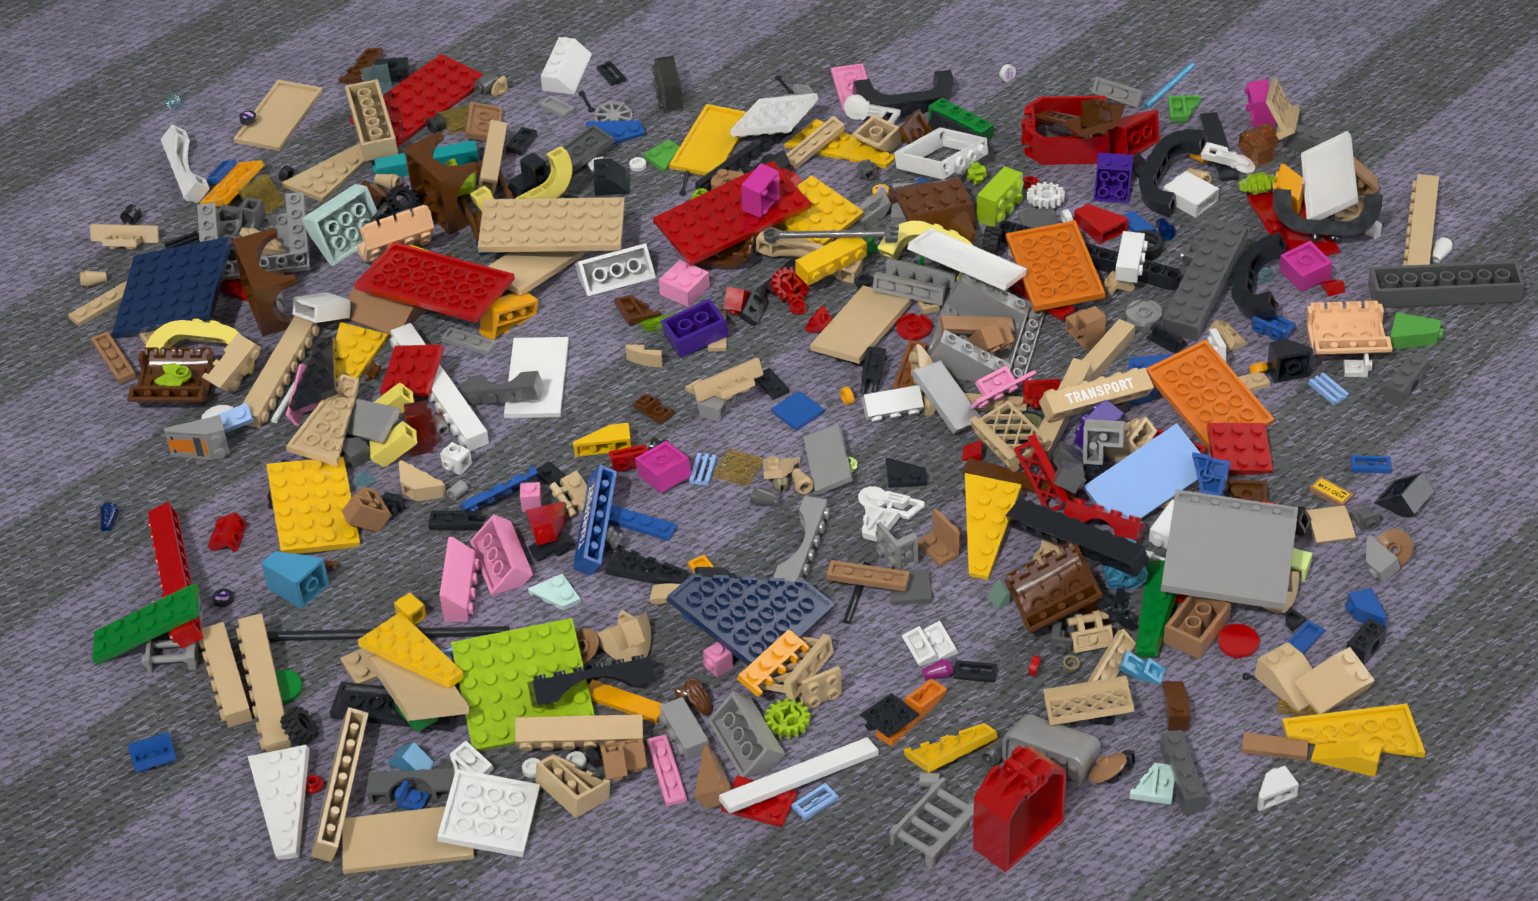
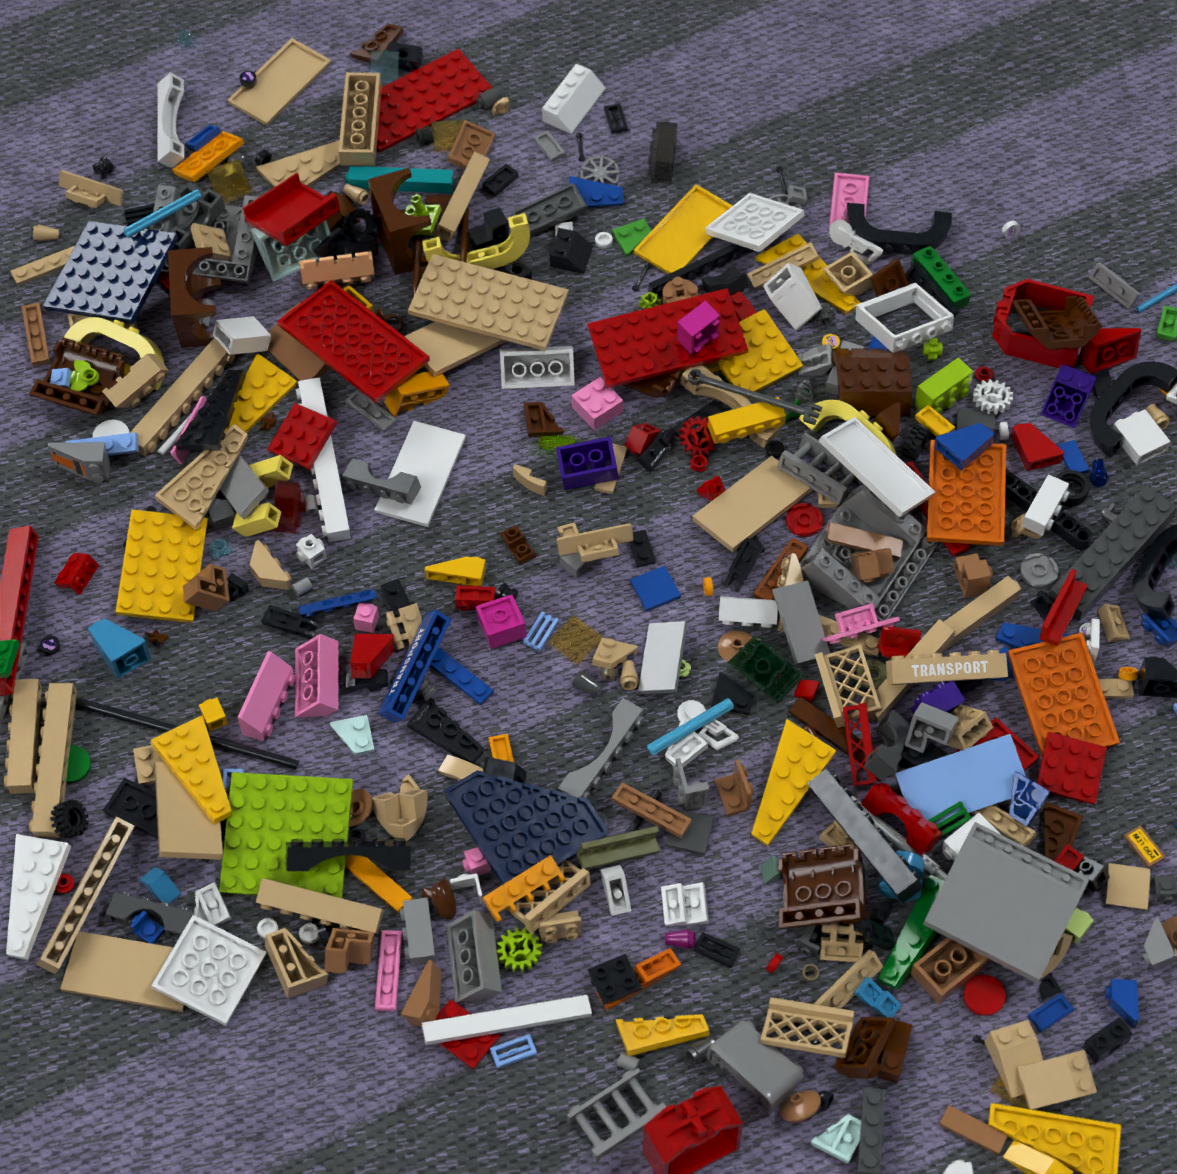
camera: 15 degrees right, 15 degrees up
(154, 379) = (61, 377): none -> light blue plate
(209, 225) = (162, 213): none -> medium azure axle
(335, 193) = (290, 210): none -> red panel
(717, 676) = (467, 880): none -> white bracket
(832, 161) = (793, 295): none -> white slope
(850, 613) = (618, 848): none -> olive fence
(860, 647) = (616, 890): none -> white slope
(876, 503) = (690, 726): none -> medium azure axle
(893, 437) = (726, 643): none -> medium nougat dish
(928, 441) = (766, 668): none -> clear green slope
(1007, 223) = (934, 421): none -> yellow tile
(1038, 226) = (964, 444): none -> blue slope
(1149, 705) = (865, 1047): none -> reddish brown slope
(1156, 501) = (963, 811): none -> green tile
(1181, 325) = (1063, 609): none -> red fence

